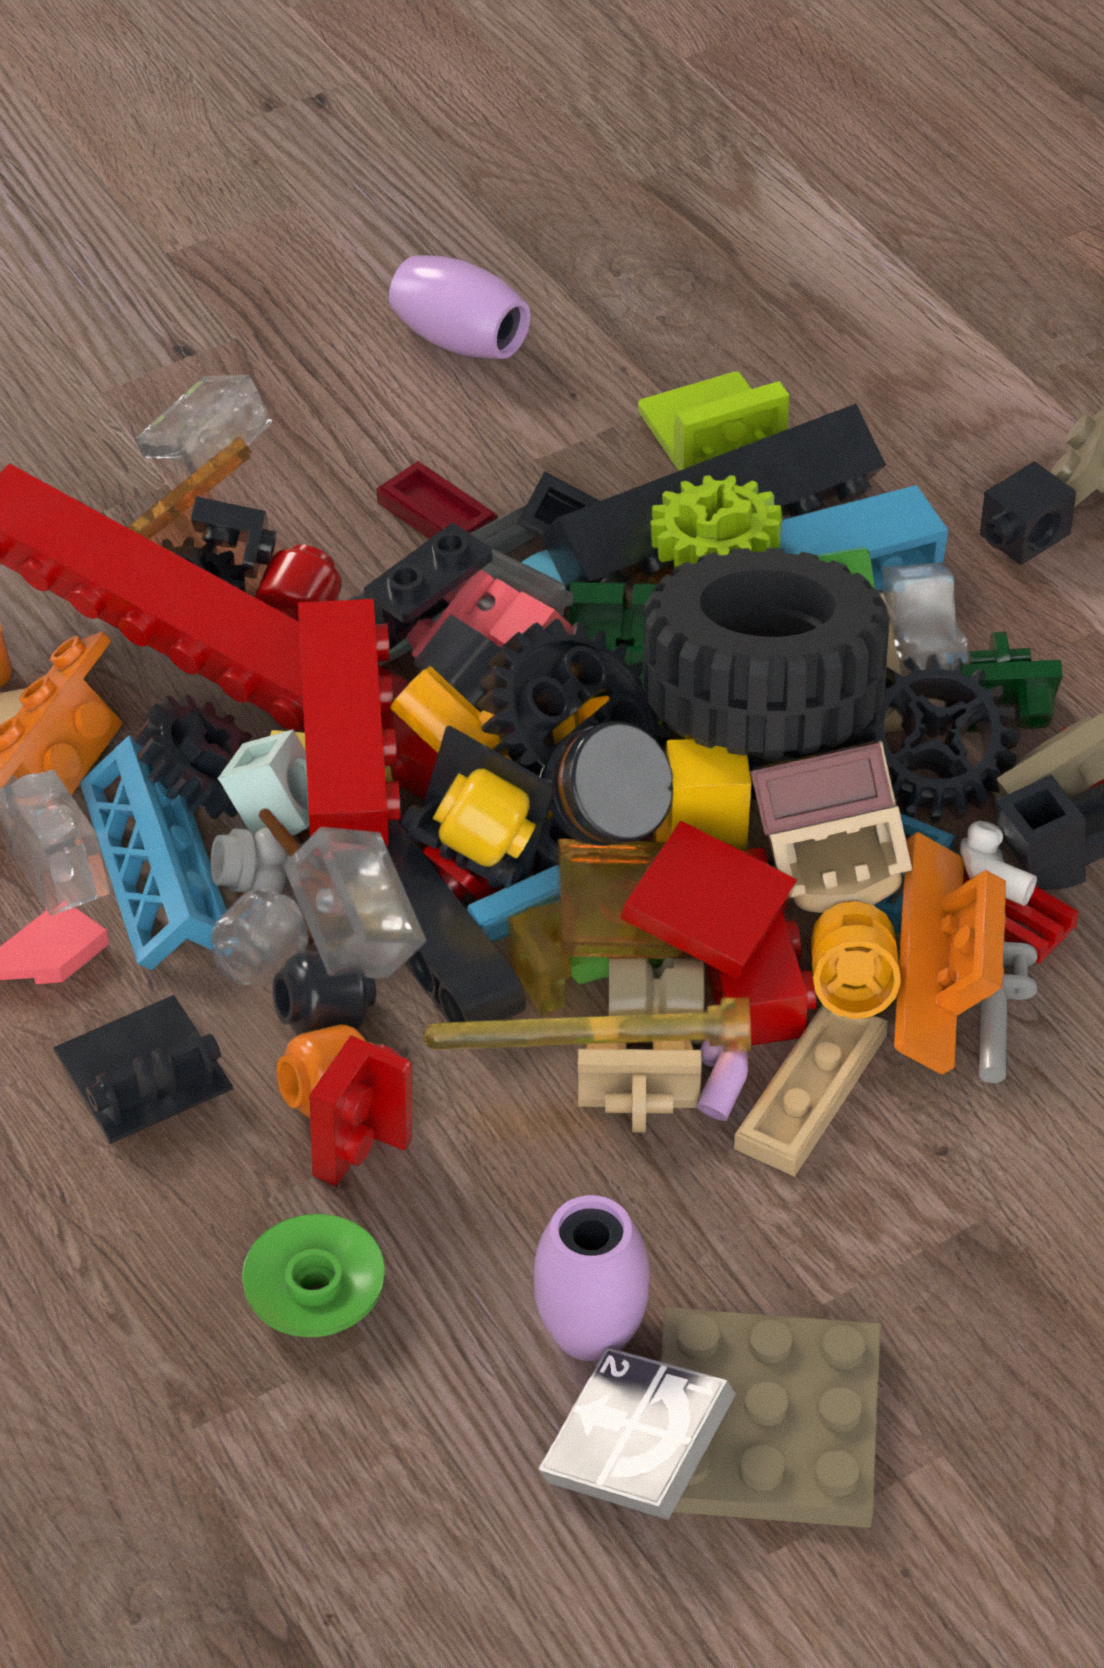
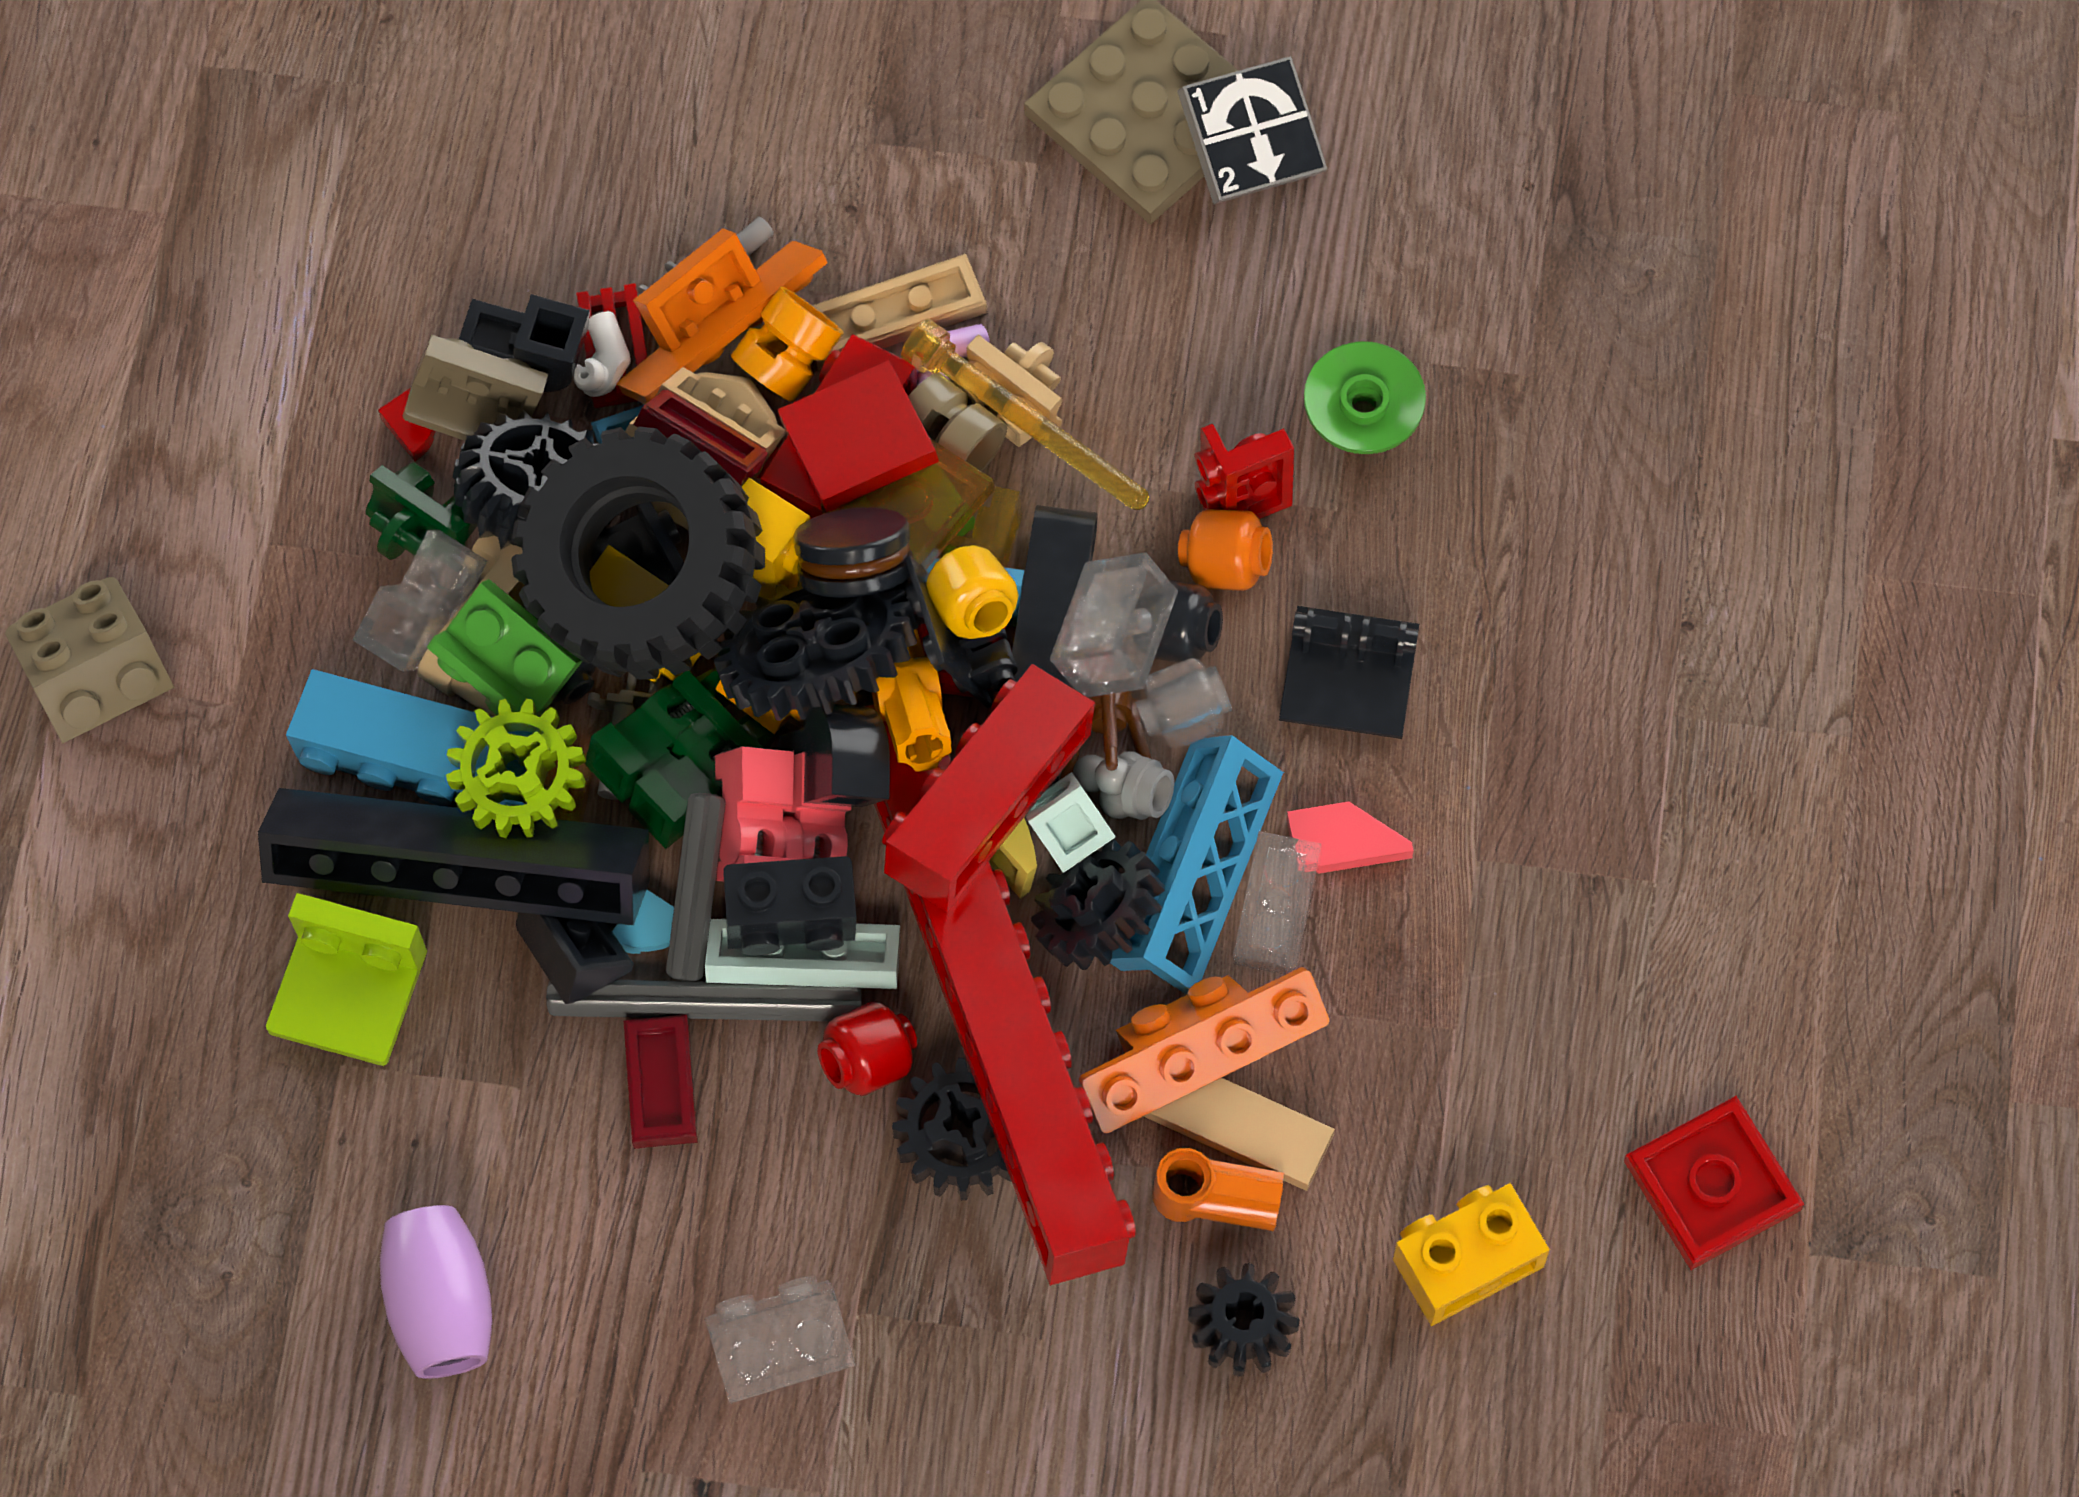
camera: 140 degrees left, 20 degrees up
(195, 485) = (883, 1219): clear orange tile -> none
(228, 523) = (880, 1124): black bracket -> none
(591, 1277) = (1201, 221): lavender piece -> none
(1027, 513) = (212, 669): black brick -> none

